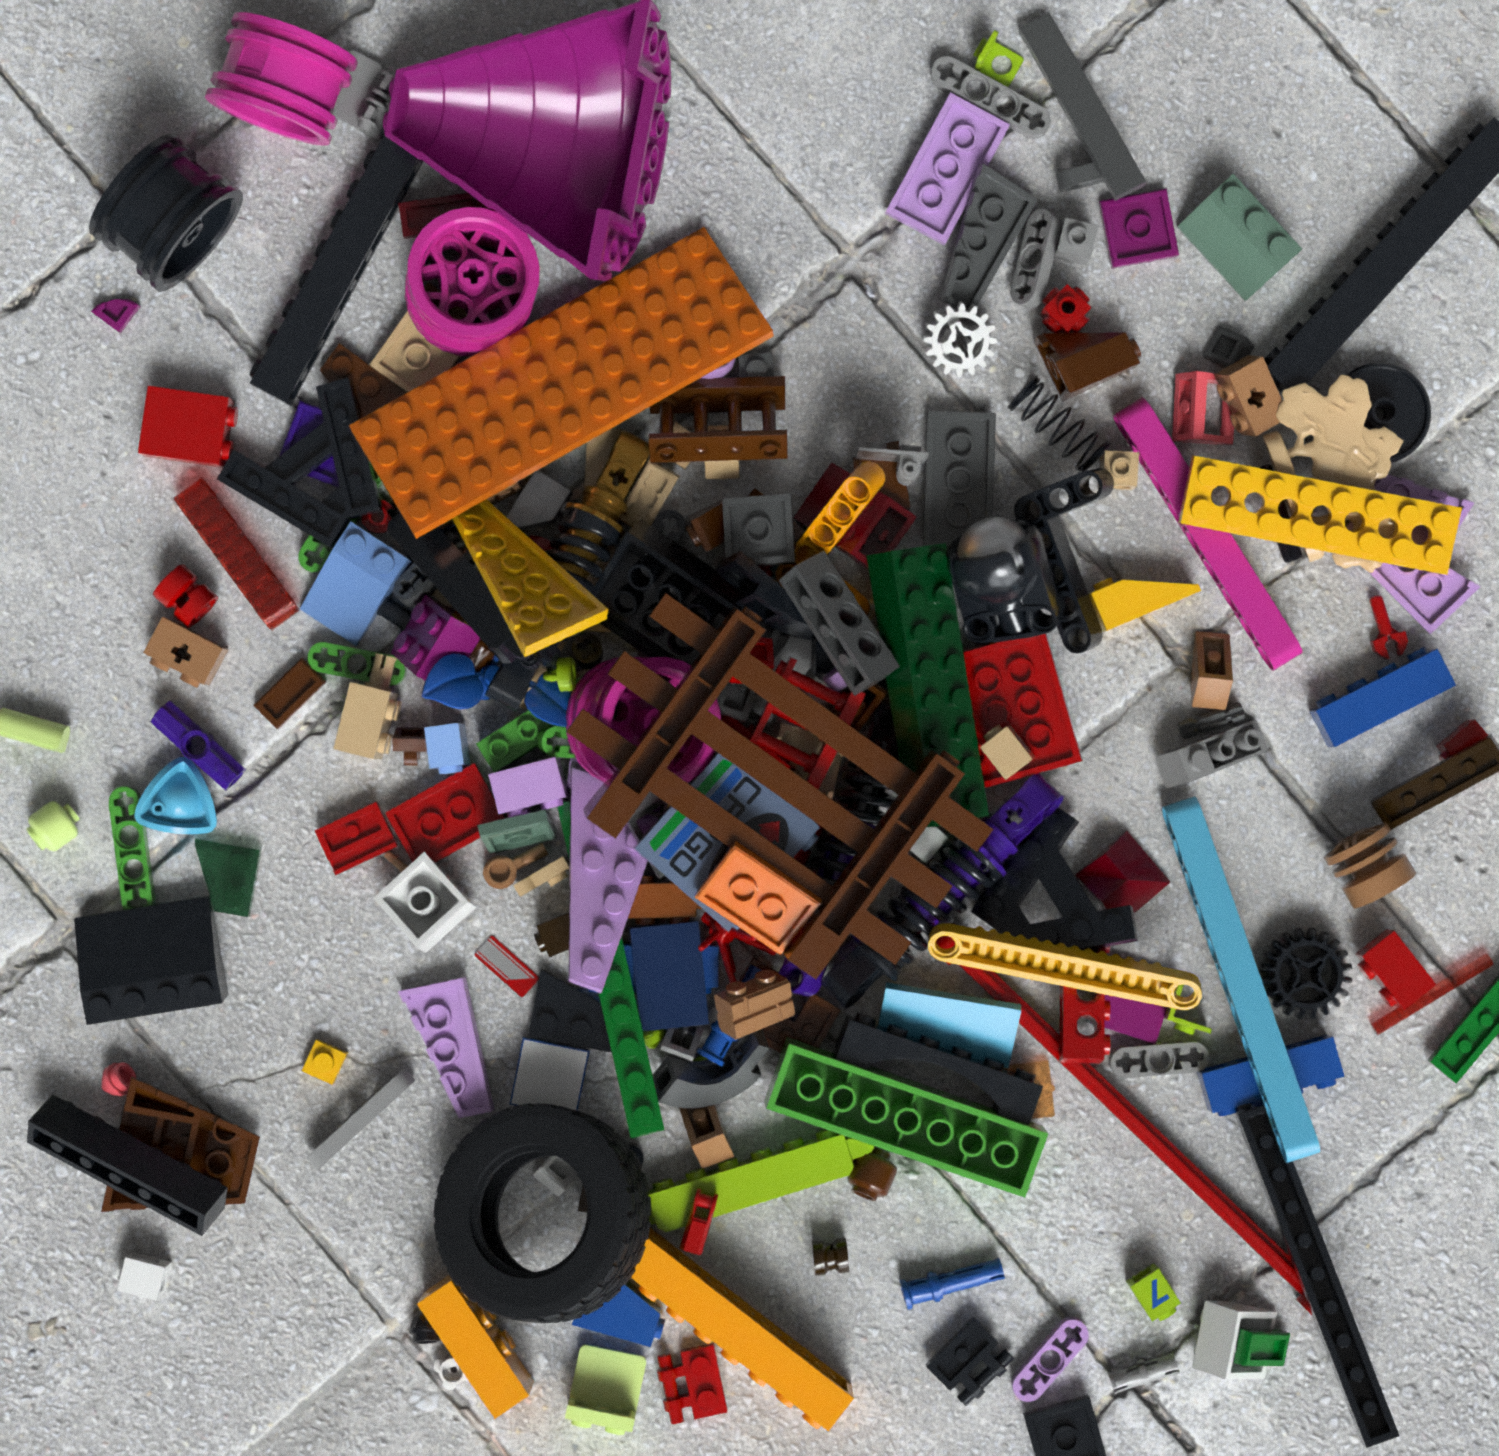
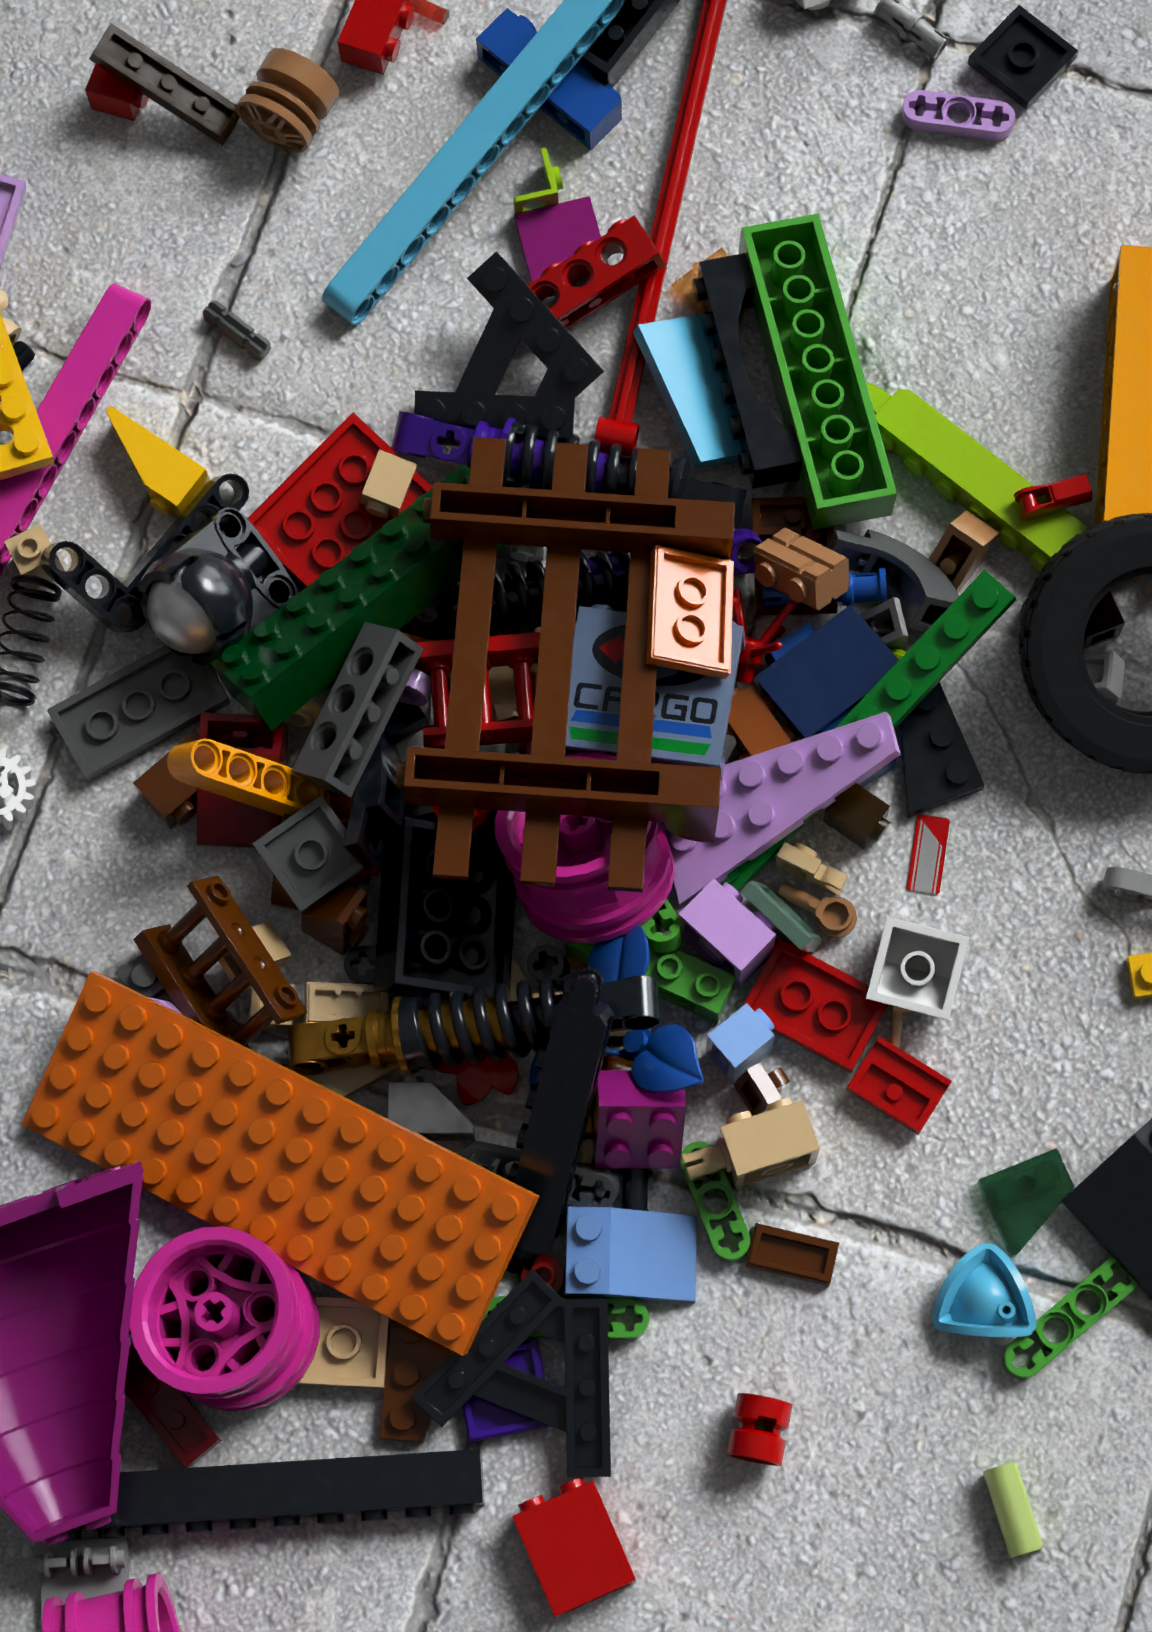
camera: 115 degrees left, 15 degrees down
(53, 826) = (1101, 1418): yellowish green head -> none
(172, 636) = (811, 1417): medium nougat brick -> none
(182, 730) = (906, 1342): dark purple piece -> none
(236, 554) = (678, 1405): clear red beam -> none
(450, 1032) = (1033, 867): lavender wing -> none
(528, 586) = (515, 1027): yellow wing -> none
(549, 1074) = (1010, 741): white tile -> none
(564, 674) = (587, 956): lime tile -> none
(830, 1256) = (1000, 365): dark brown wheel -> none
(872, 1175) = (895, 370): reddish brown head -> none
(907, 458) = (150, 747): light grey hinge -> none
(936, 1286) = (961, 254): blue pin -> none
(962, 1354) = (1007, 191): black plate -> none
(1065, 966) = (567, 303): yellow gear -> none
(1122, 875) = (444, 322): dark red slope -> none
(1154, 1293) = (829, 59): lime brick -> none
(1184, 1065) = (599, 169): light grey beam -> none
(1211, 670) = (186, 355): medium nougat slope -> none
(1211, 754) = (272, 309): light grey slope -> none
(1316, 962) = (416, 87): black gear -> none
(1382, 697) = (115, 188): blue brick -> none
(1385, 629) = (48, 225): red bar -> none

